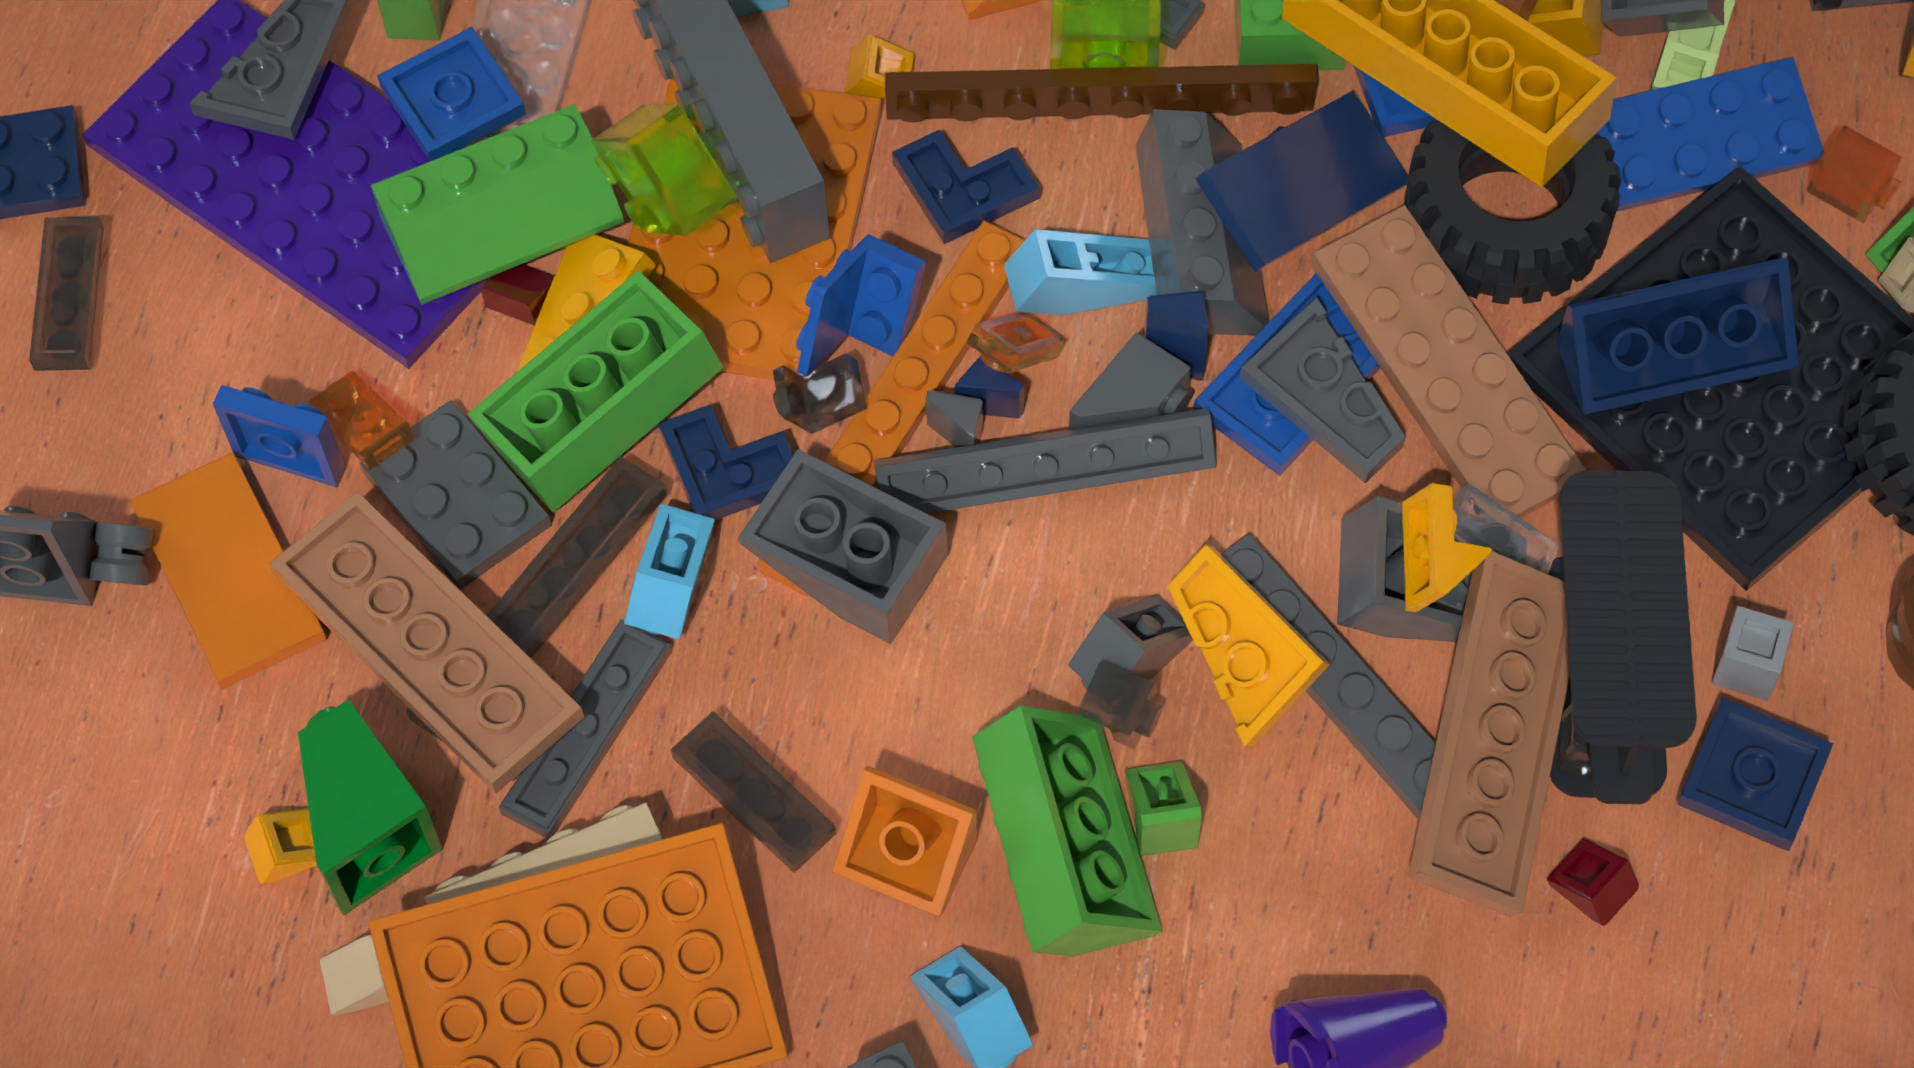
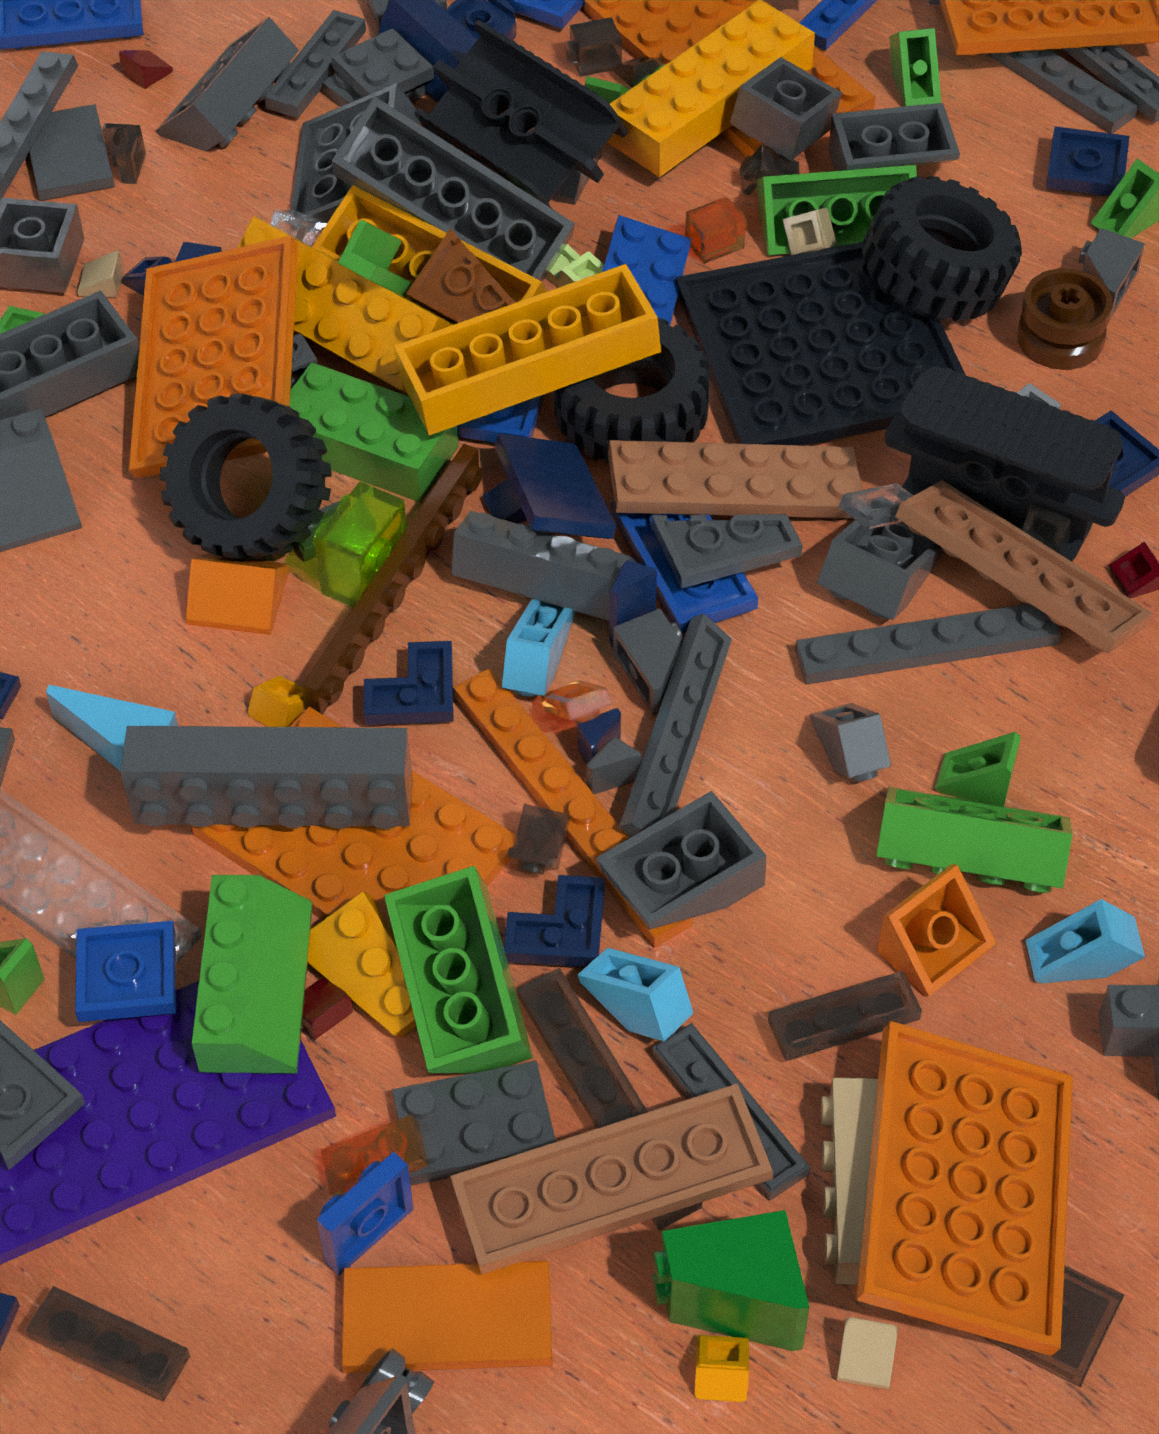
camera: 65 degrees left, 10 degrees down
(662, 170) = (315, 835): clear neon green brick -> none
(864, 296) = (493, 771): blue bracket -> none
(1121, 703) = (901, 754): clear smoke bracket -> none
(1249, 646) = (884, 671): light orange wing -> none
(1431, 555) = (890, 528): light orange slope -> none
(1680, 336) = (795, 352): dark blue slope -> none

